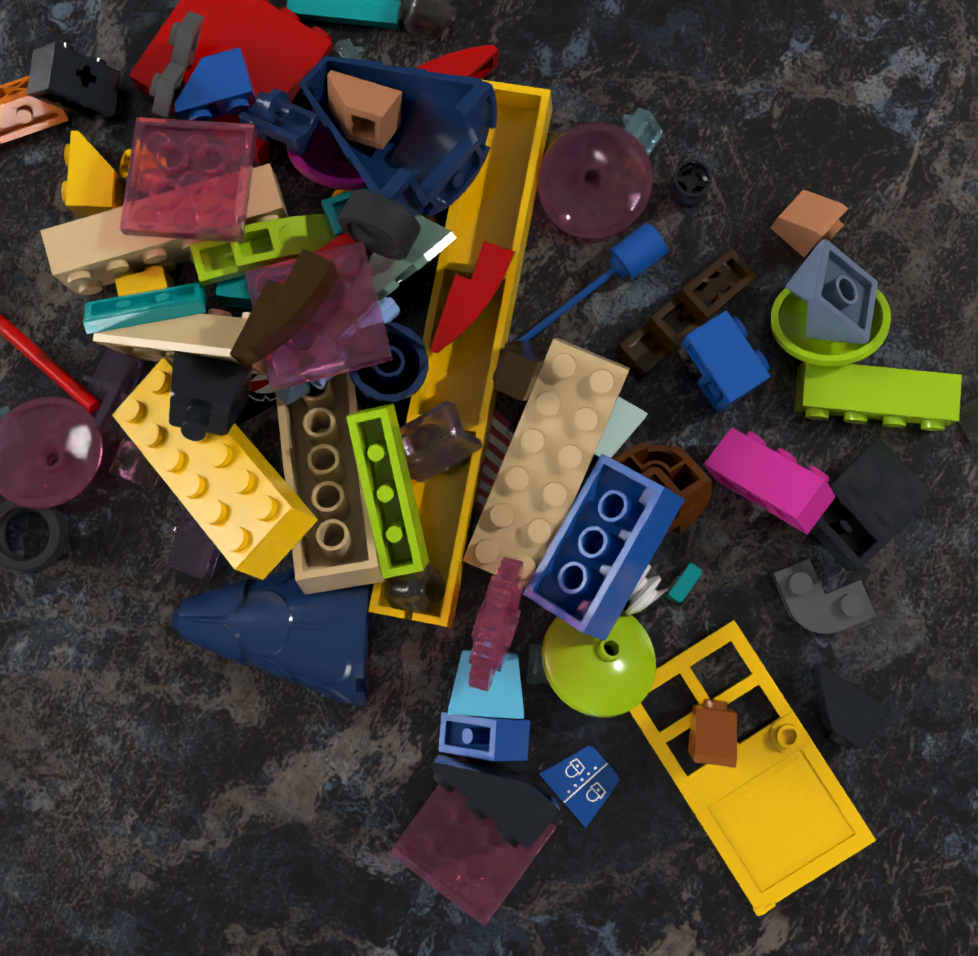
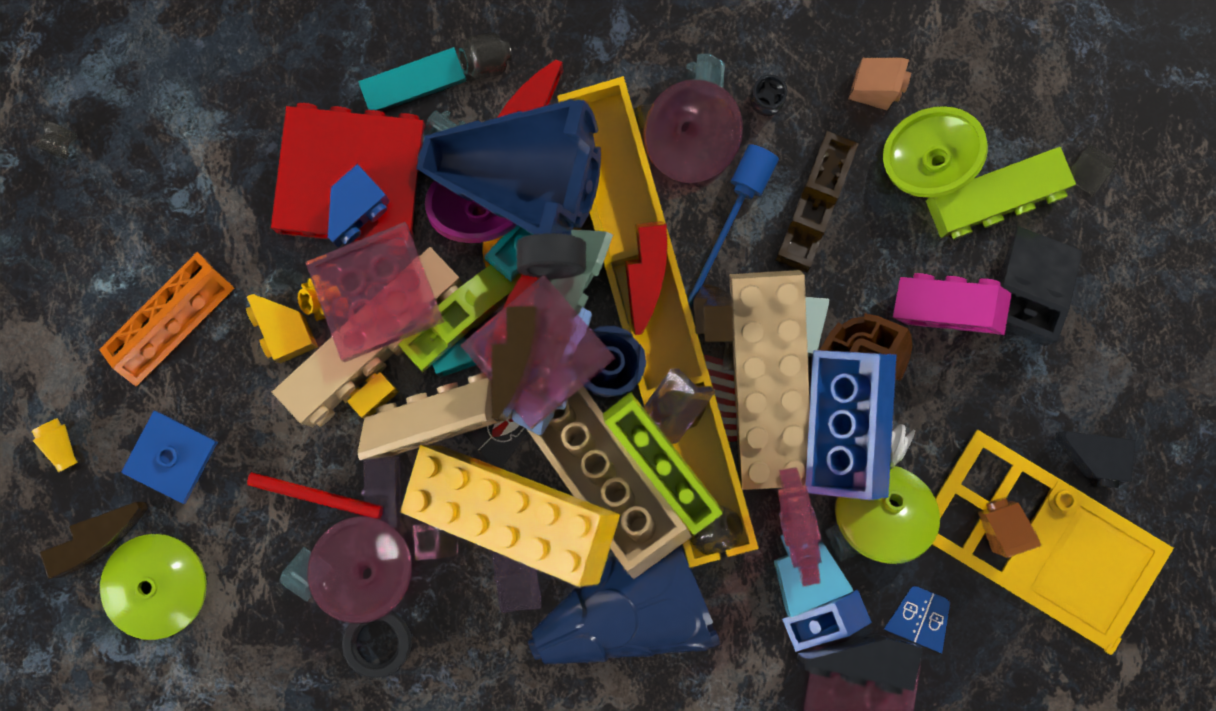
camera: 30 degrees left, 0 degrees up
(73, 81) = (228, 255): black brick -> none
(144, 308) = (386, 412): teal tile -> none
(168, 85) = (313, 224): dark grey plate -> none
(207, 394) = (478, 459): black torso -> none
(281, 121) = (420, 207): dark blue hips -> none
(364, 109) = (481, 165): nougat slope -> none
(683, 583) = (923, 419): teal tile -> none
(725, 361) = (871, 227): blue brick -> none
(819, 610) = (1037, 388): dark grey plate -> none
(837, 295) = (933, 130): sand blue slope -> none

